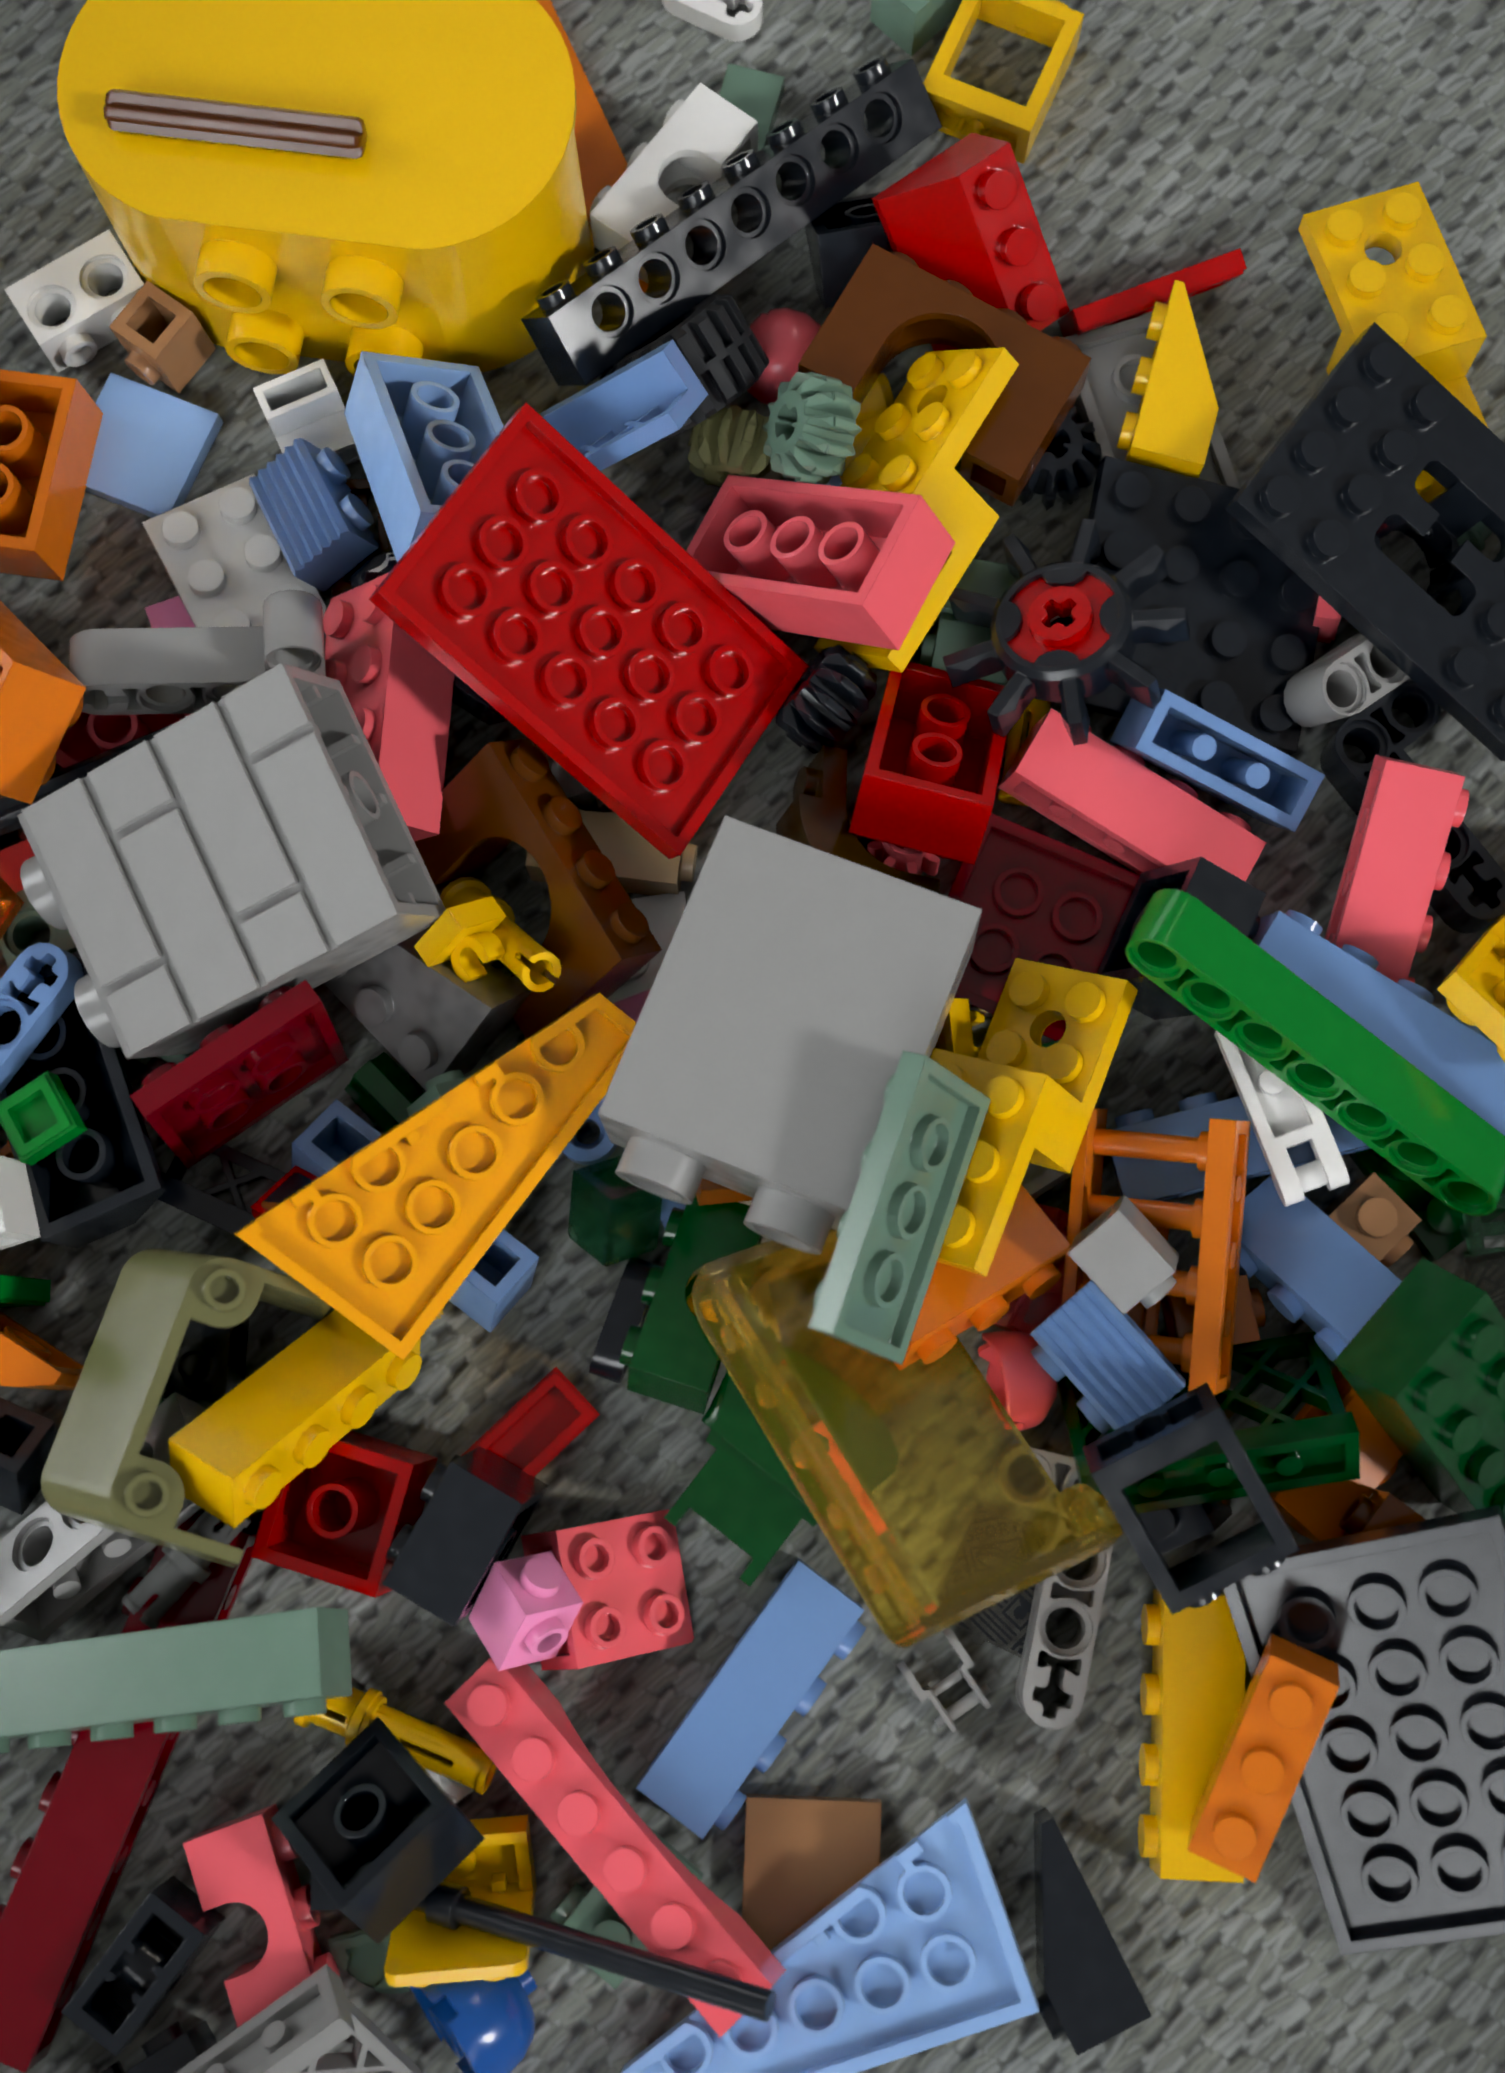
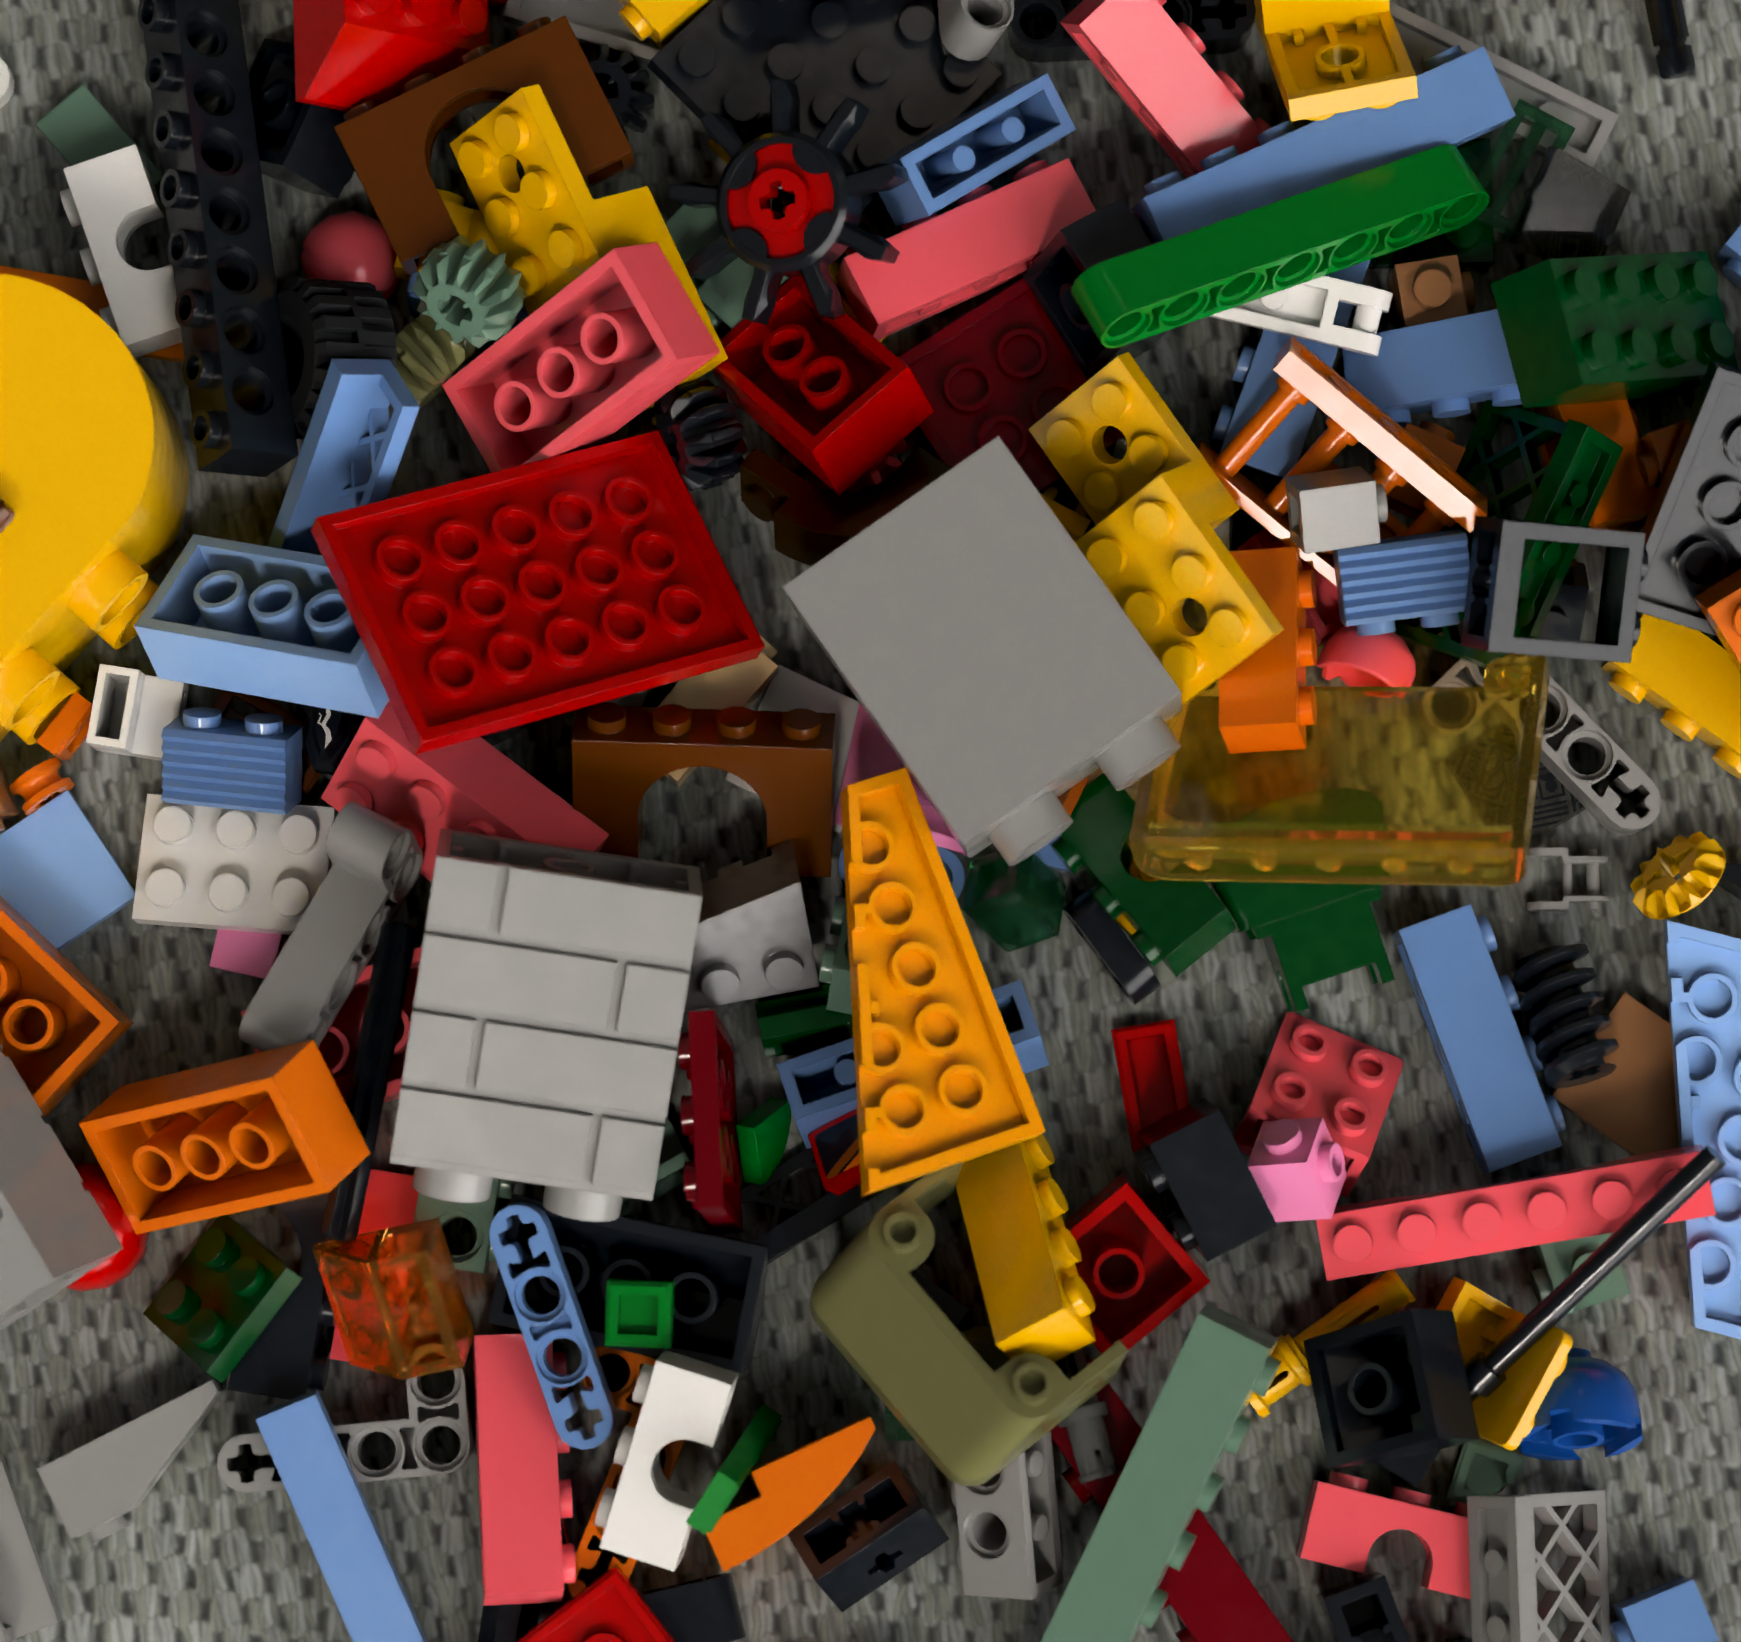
camera: 60 degrees left, 5 degrees up
(208, 389) = (40, 785): none -> orange bush
(254, 371) = (68, 728): none -> orange tile
(270, 1134) = (763, 1139): none -> green tile
(463, 936) = (722, 868): yellow tile -> none
(522, 953) = (712, 843): yellow pin -> none
(822, 1762) = (1563, 1016): none -> black piece
(900, 1209) = (1194, 658): sand green plate -> none
(1033, 1803) = (1697, 861): none -> yellow gear

